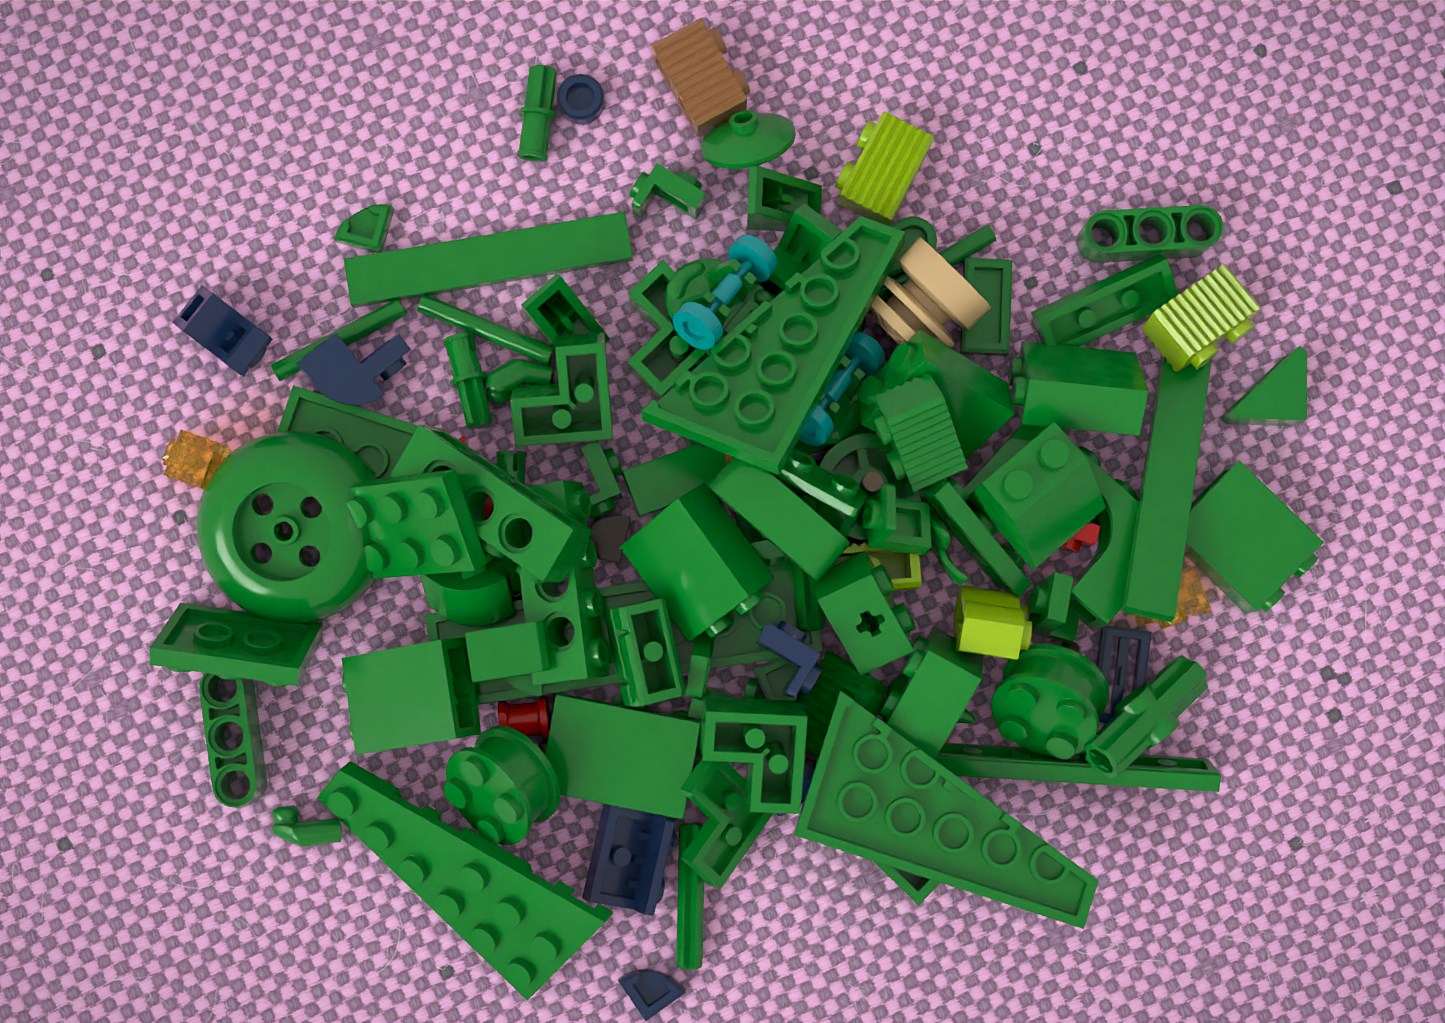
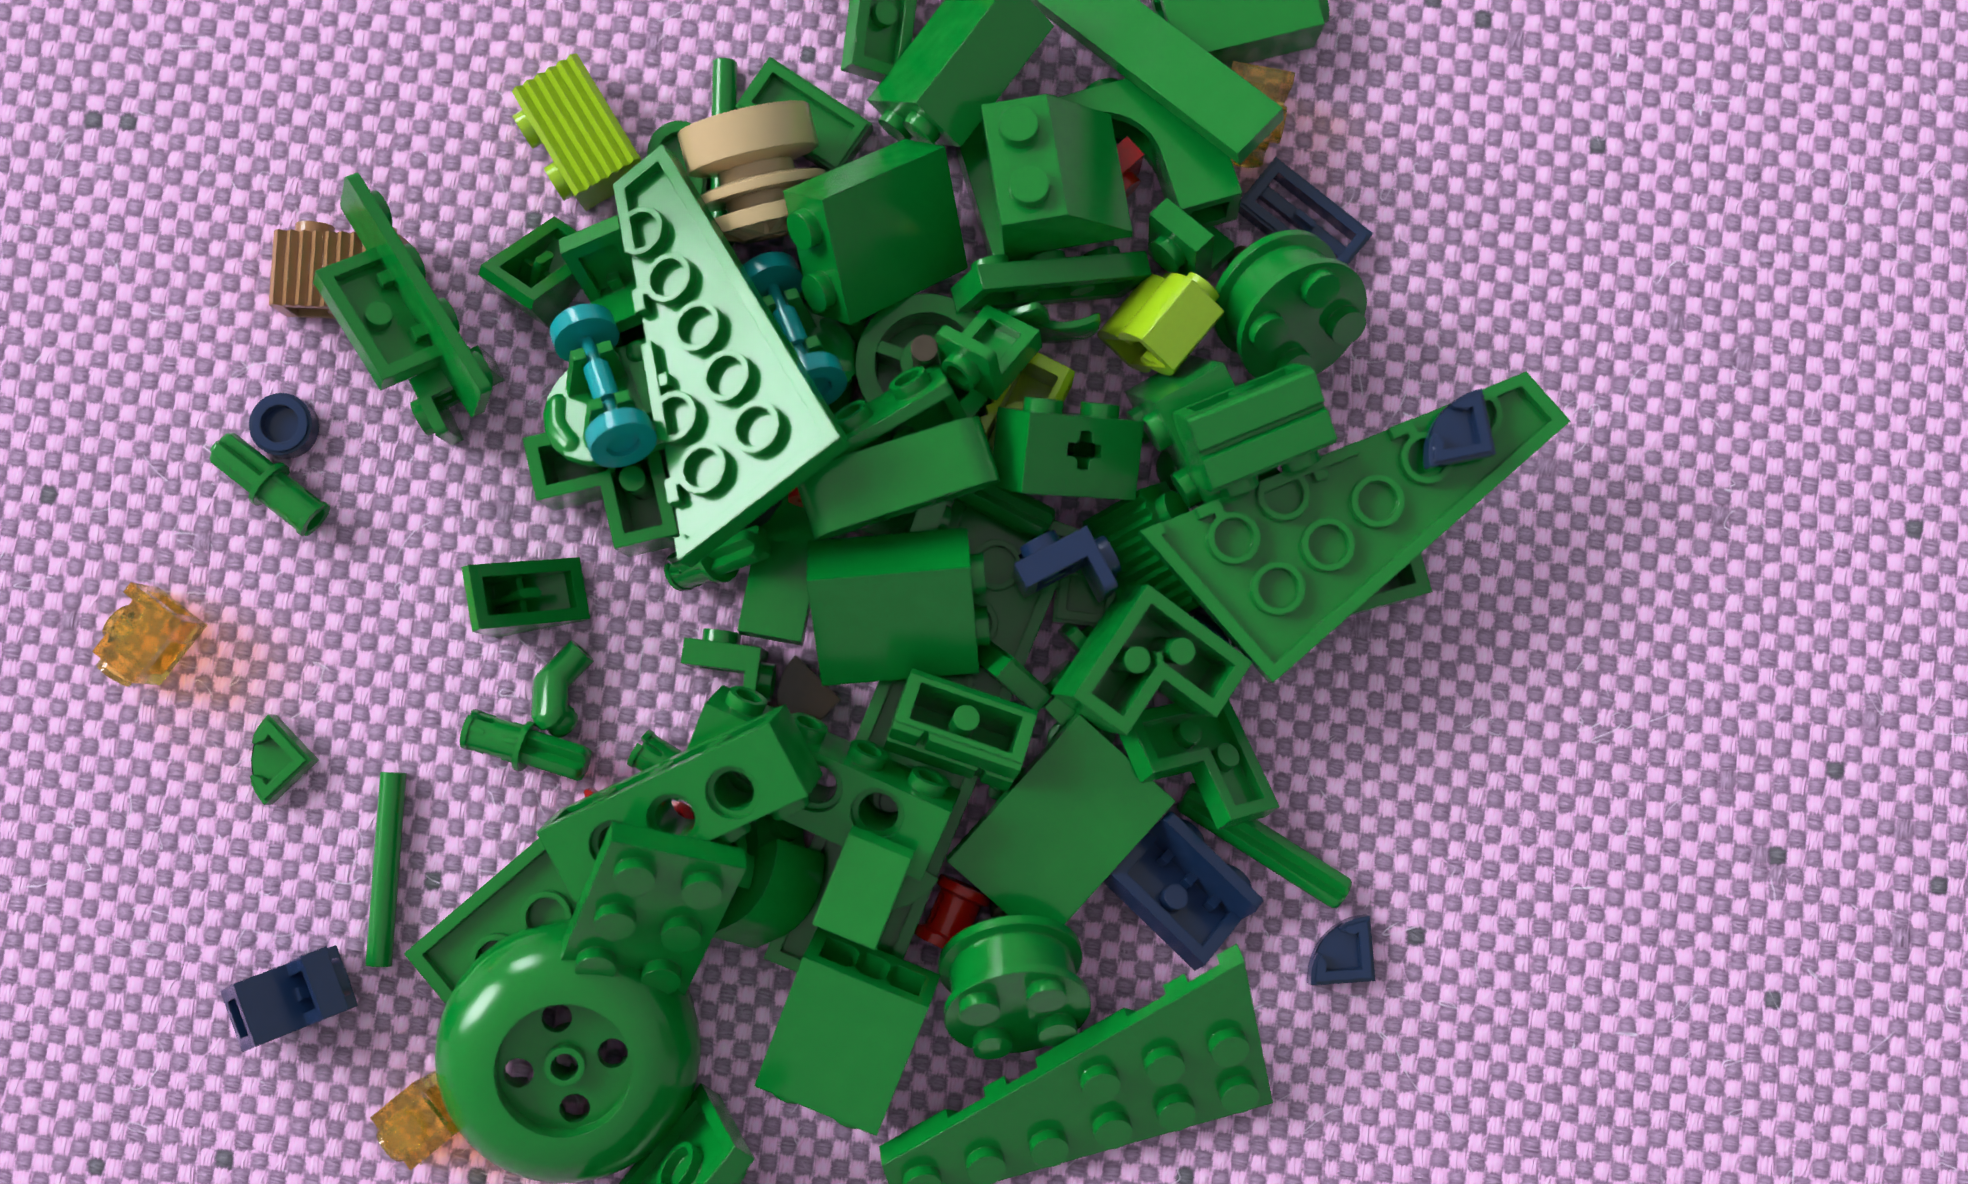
camera: 55 degrees left, 0 degrees up
(344, 379) = (430, 890): dark blue brick -> none
(394, 99) = (146, 637): none -> clear yellow brick
(486, 329) = (480, 691): green bar -> none
(488, 259) = (400, 643): green tile -> none
(576, 405) = (630, 639): green brick -> none
(673, 444) = (723, 563): none -> green axle
(694, 126) = (391, 308): none -> green bracket
(748, 140) = (454, 252): green dish -> none
(920, 432) = (900, 261): green brick -> none
(949, 725) = (1255, 429): none -> green brick
(1023, 764) = (1405, 288): green tile -> none
(1029, 860) = (1459, 433): none -> dark blue tile
(1146, 716) = (1369, 215): green piece -> none

